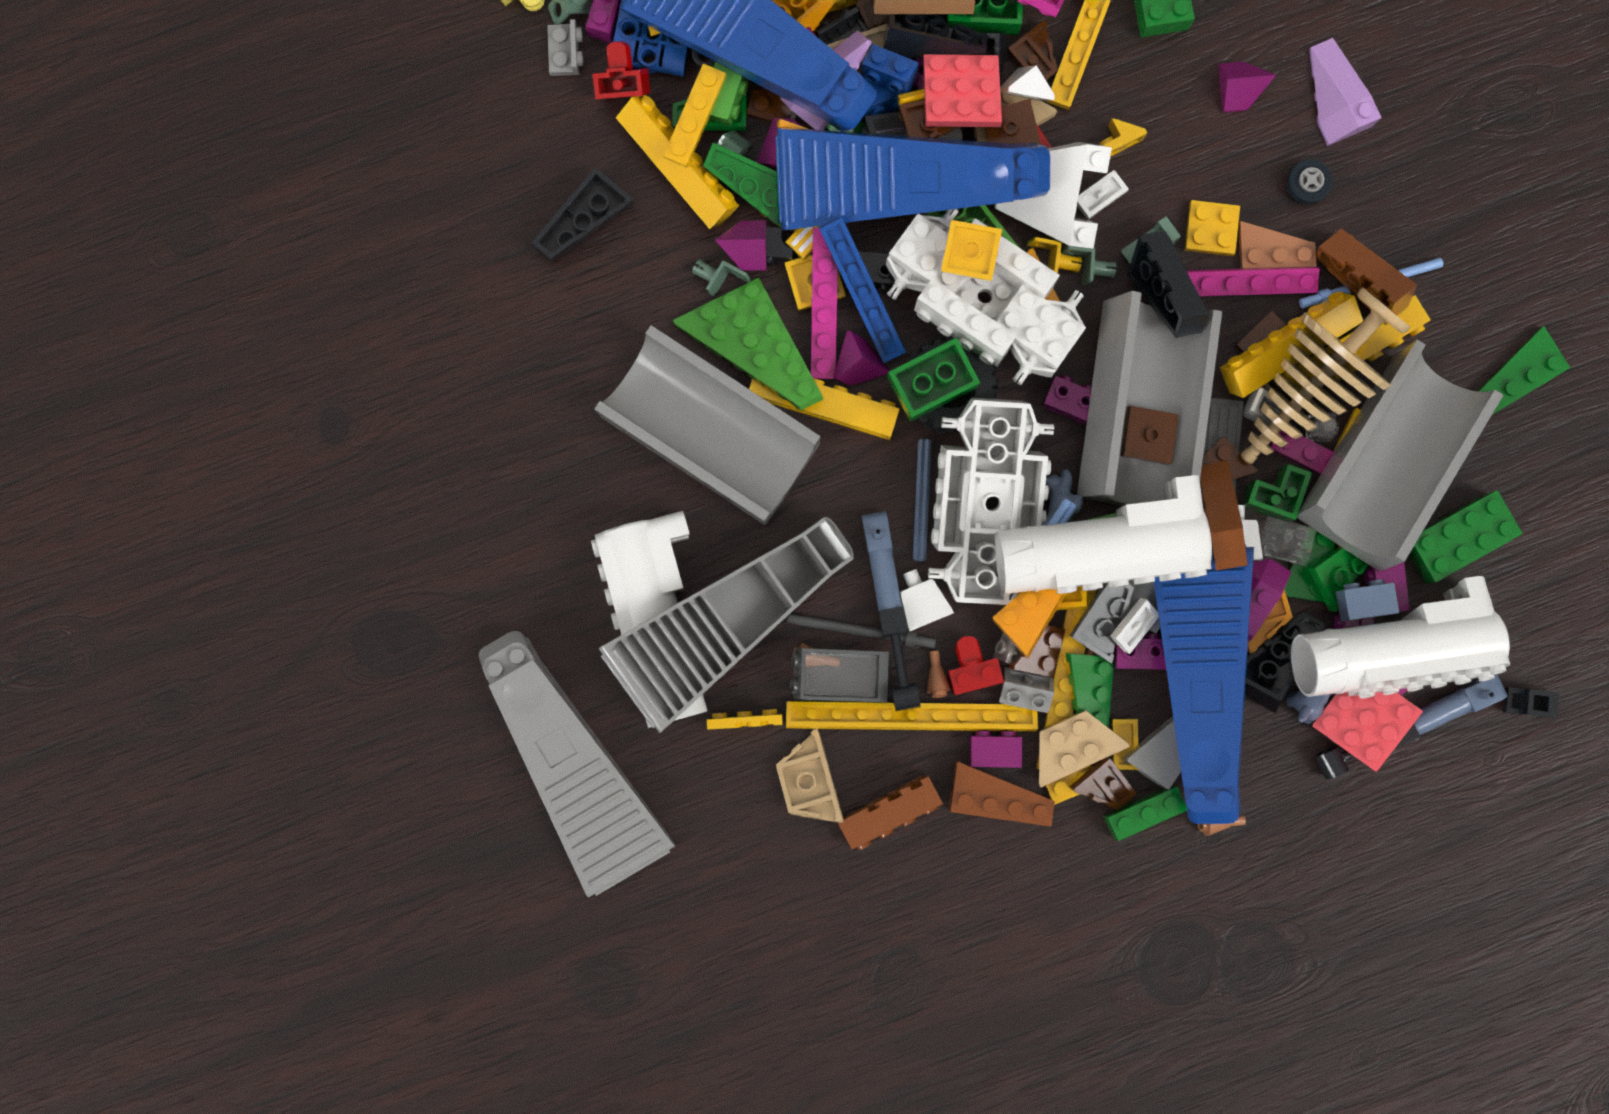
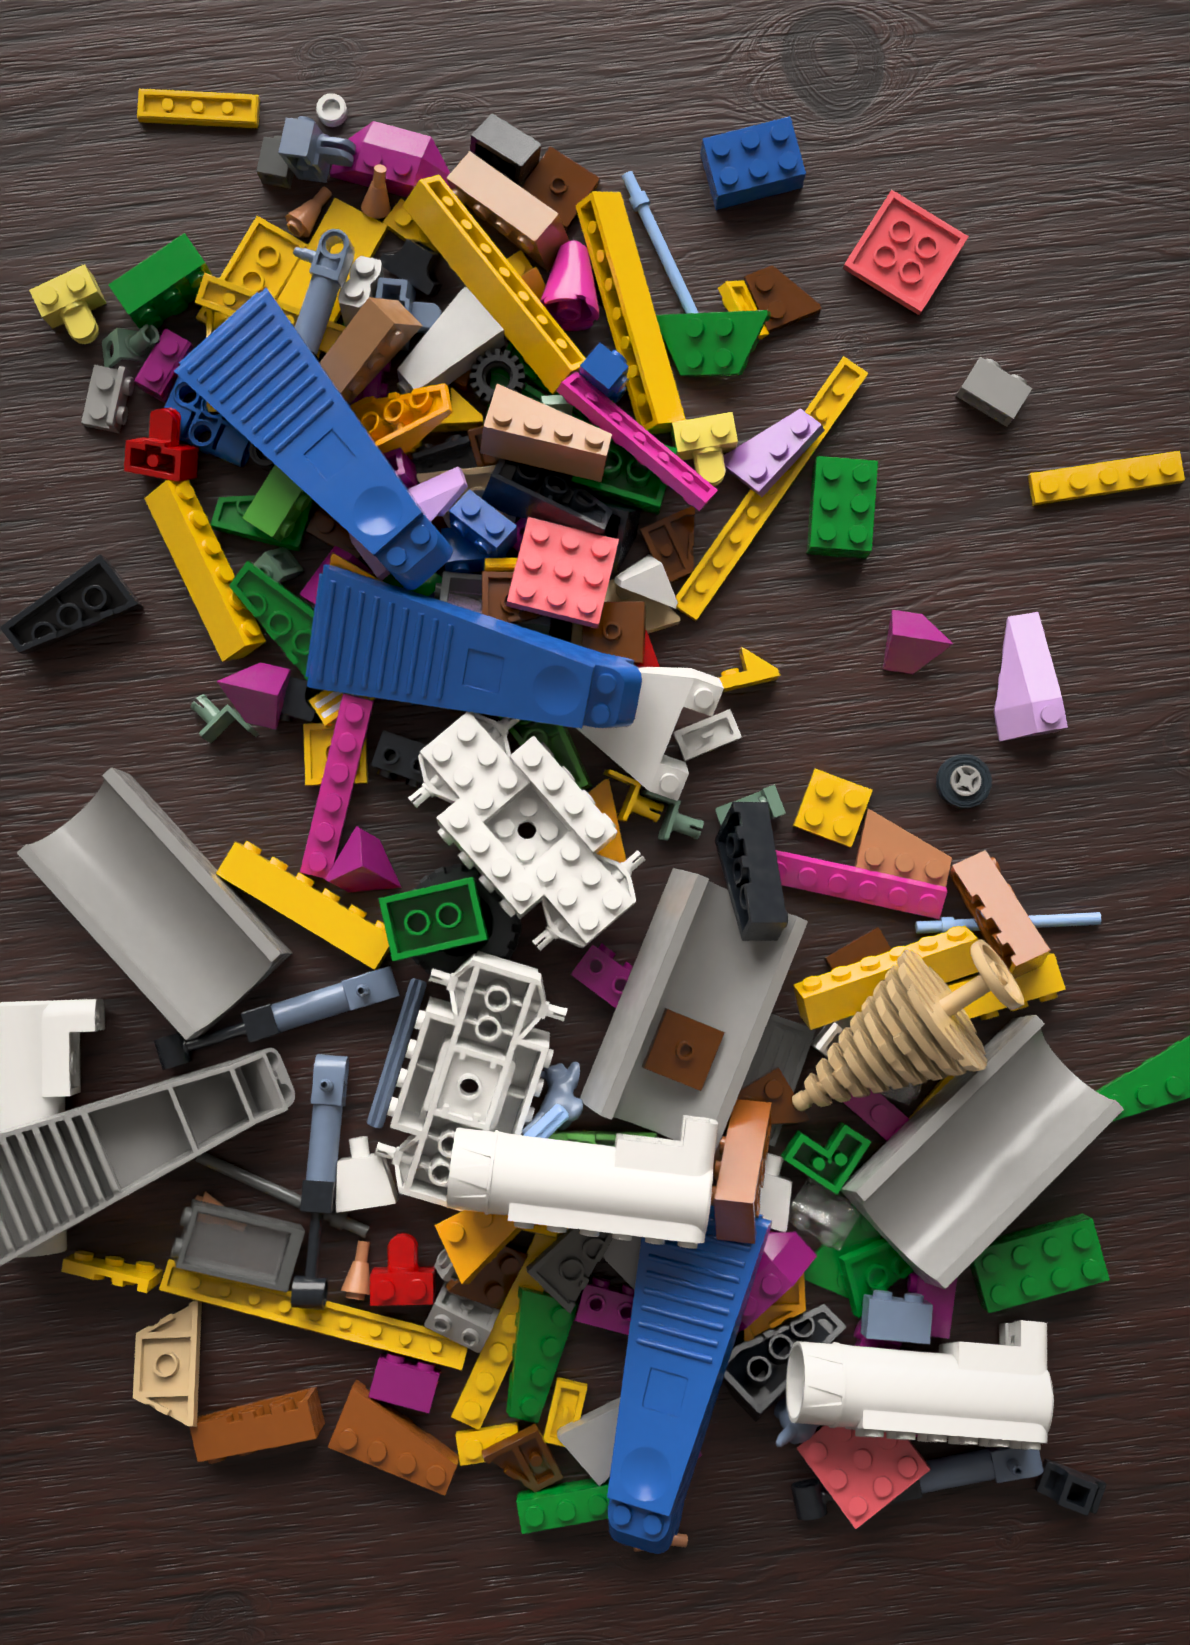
camera: 10 degrees right, 0 degrees up
(695, 115) = (233, 523): yellow plate -> none
(755, 340) = (240, 808): bright green wing -> none
(830, 490) = (286, 1014): none -> piece
(862, 289) = (384, 782): blue plate -> none
(971, 250) = (515, 776): yellow plate -> none
(1075, 745) = (500, 1402): tan wing -> none
(1135, 625) = (607, 1276): white plate -> none

